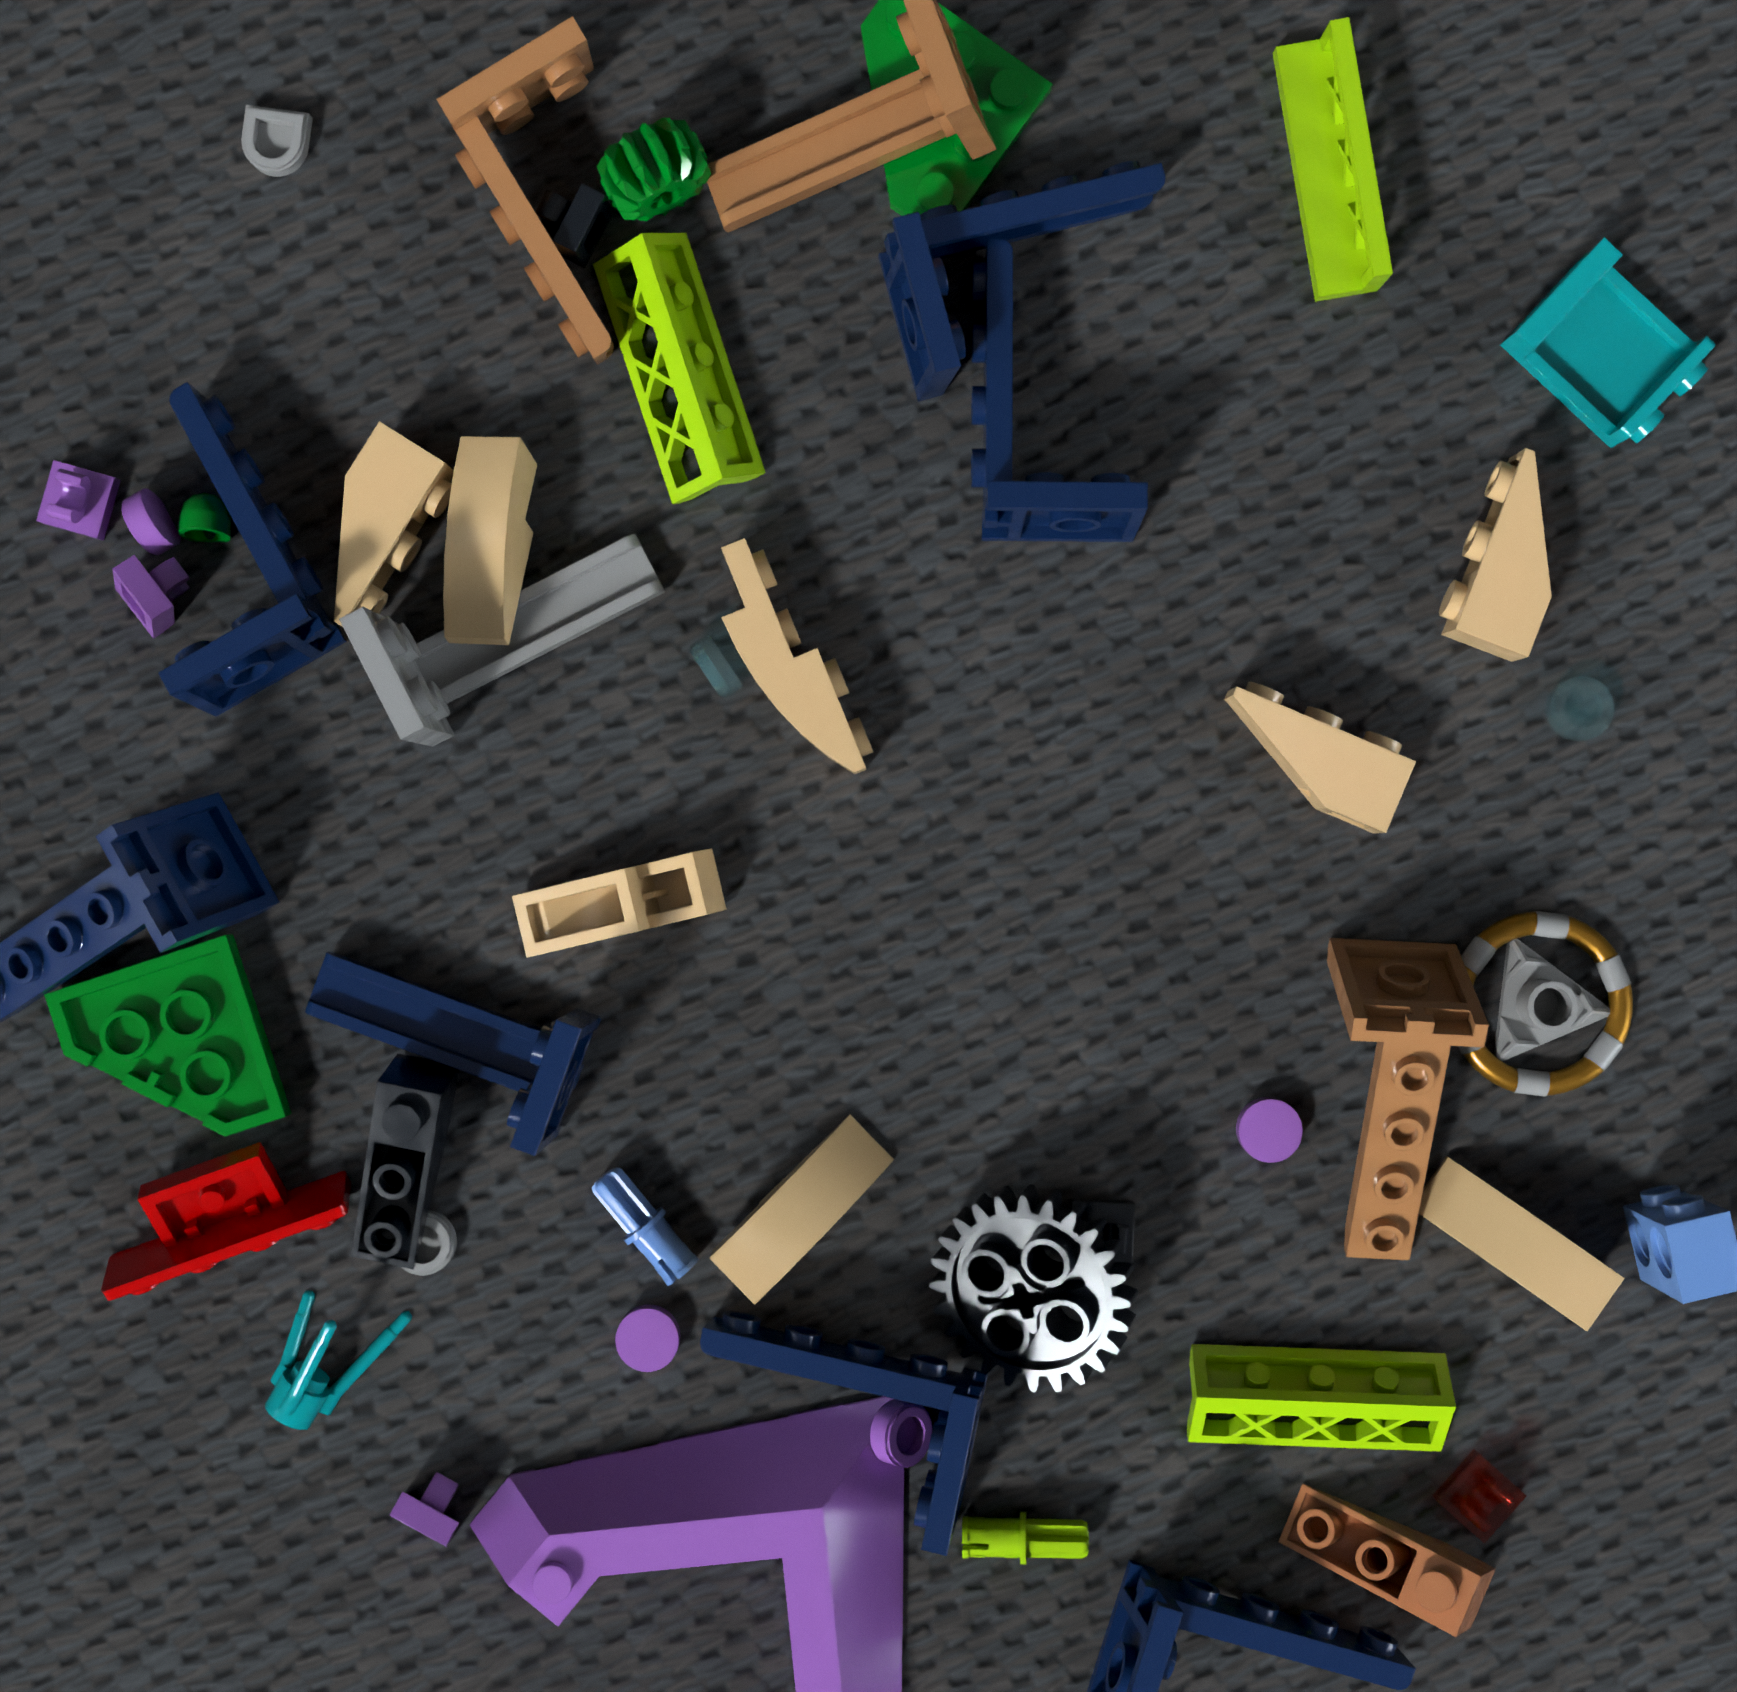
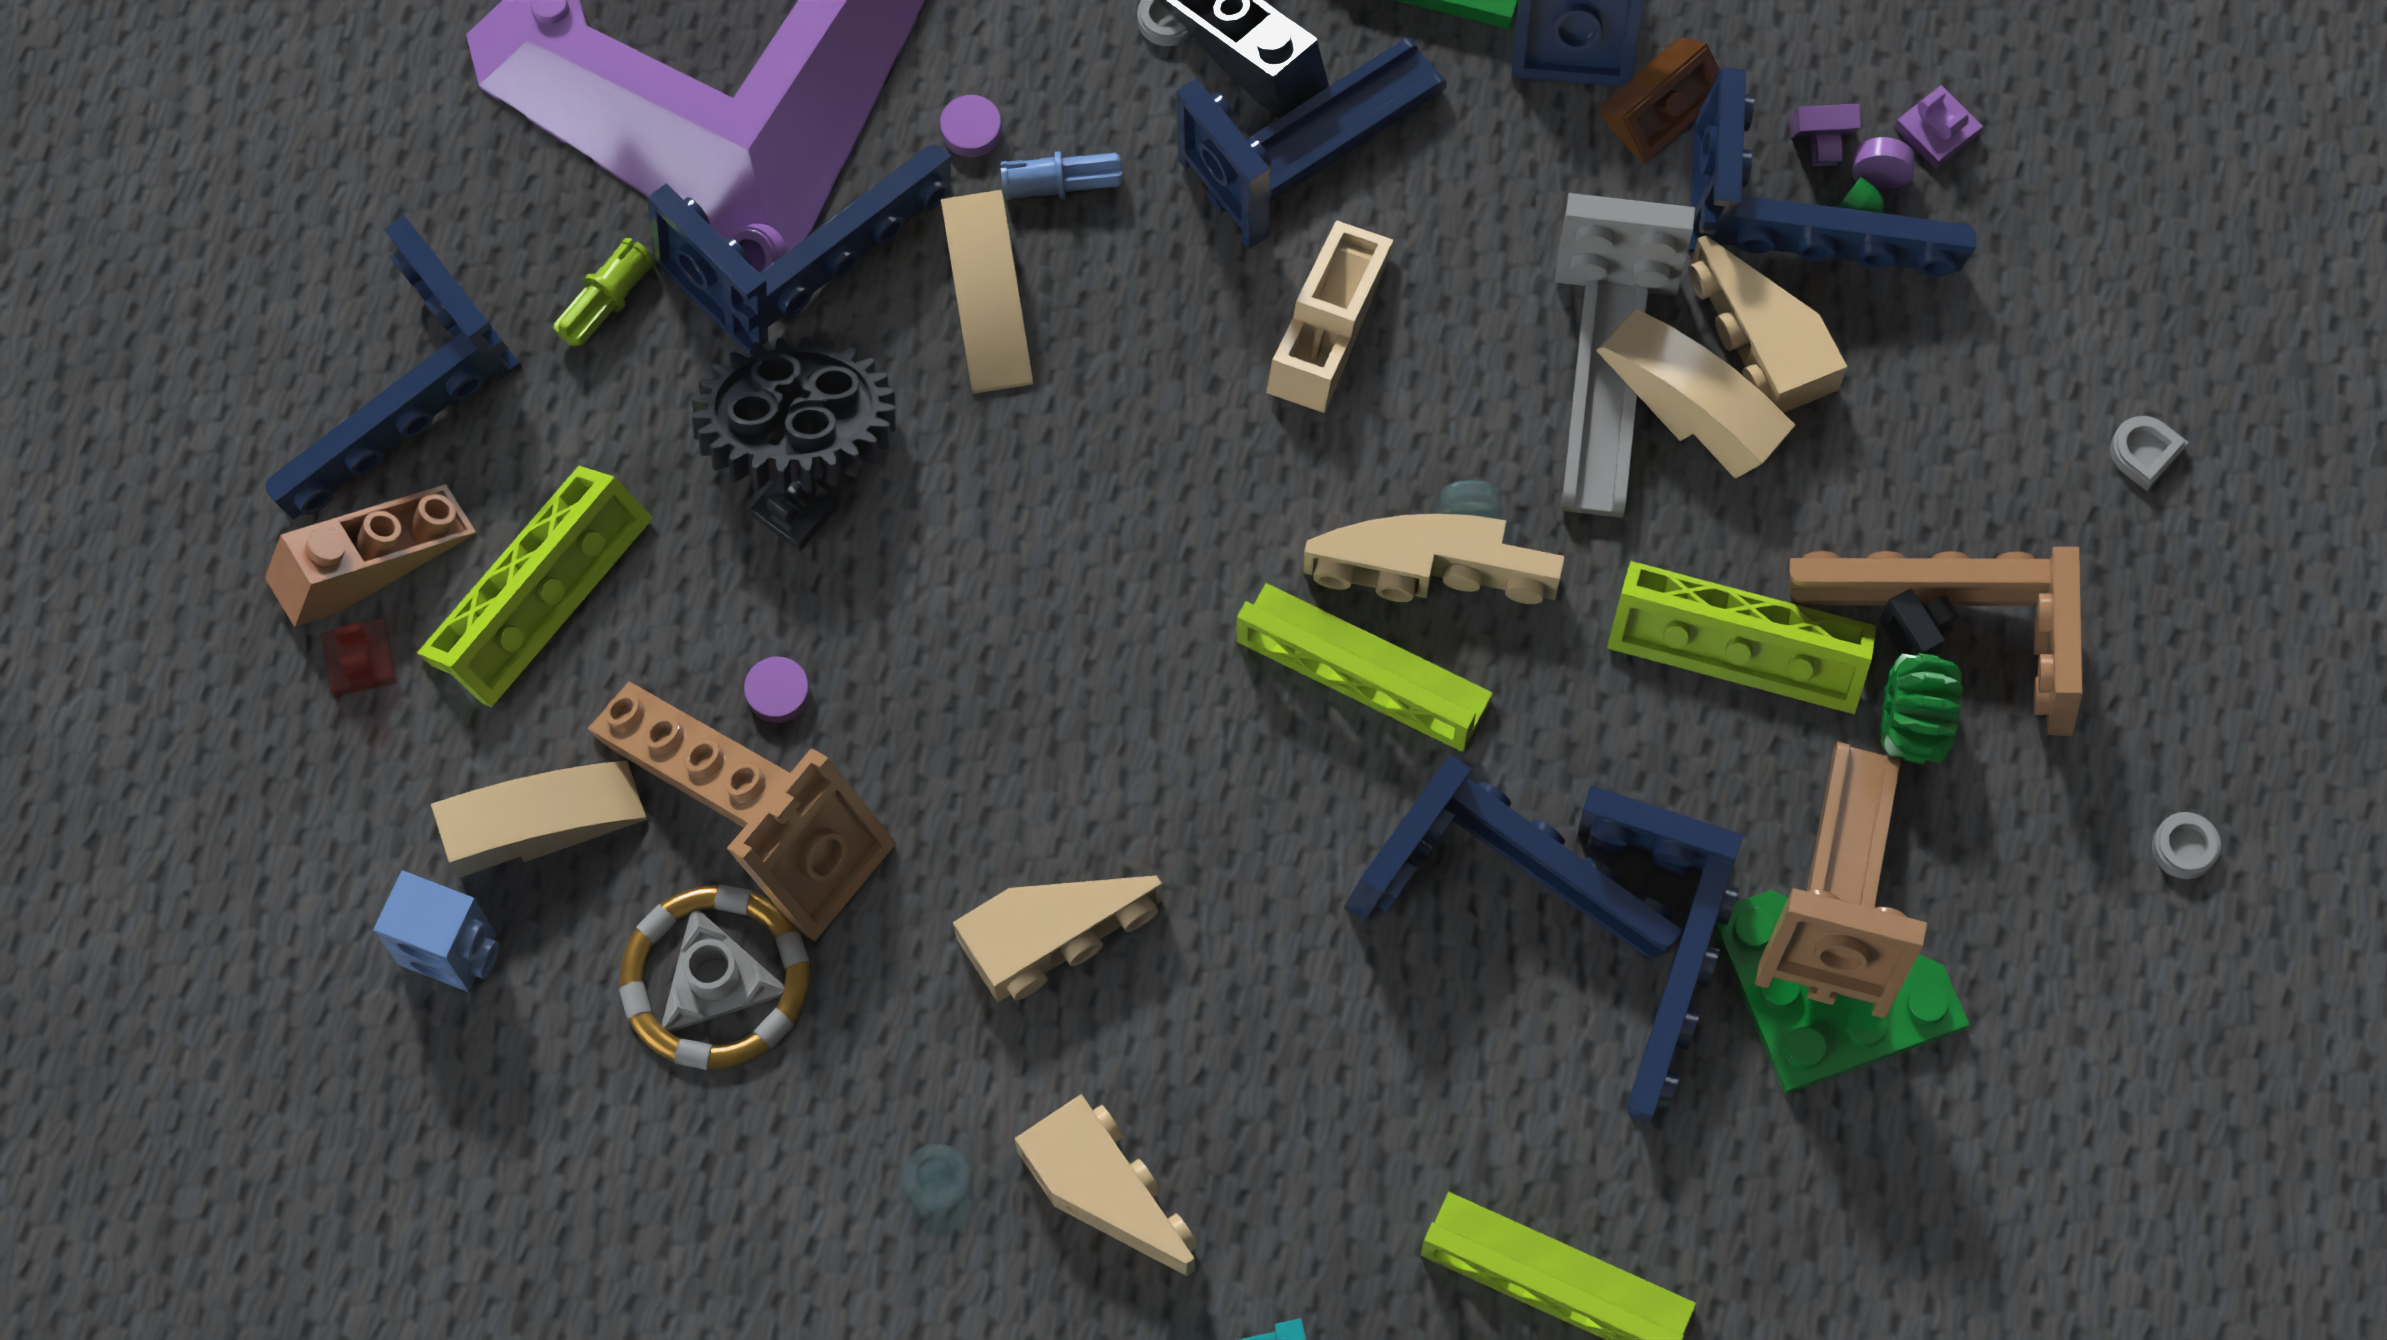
camera: 125 degrees right, 20 degrees down
(210, 755) = (1661, 98): none -> reddish brown slope
(919, 659) = (1363, 666): none -> lime fence

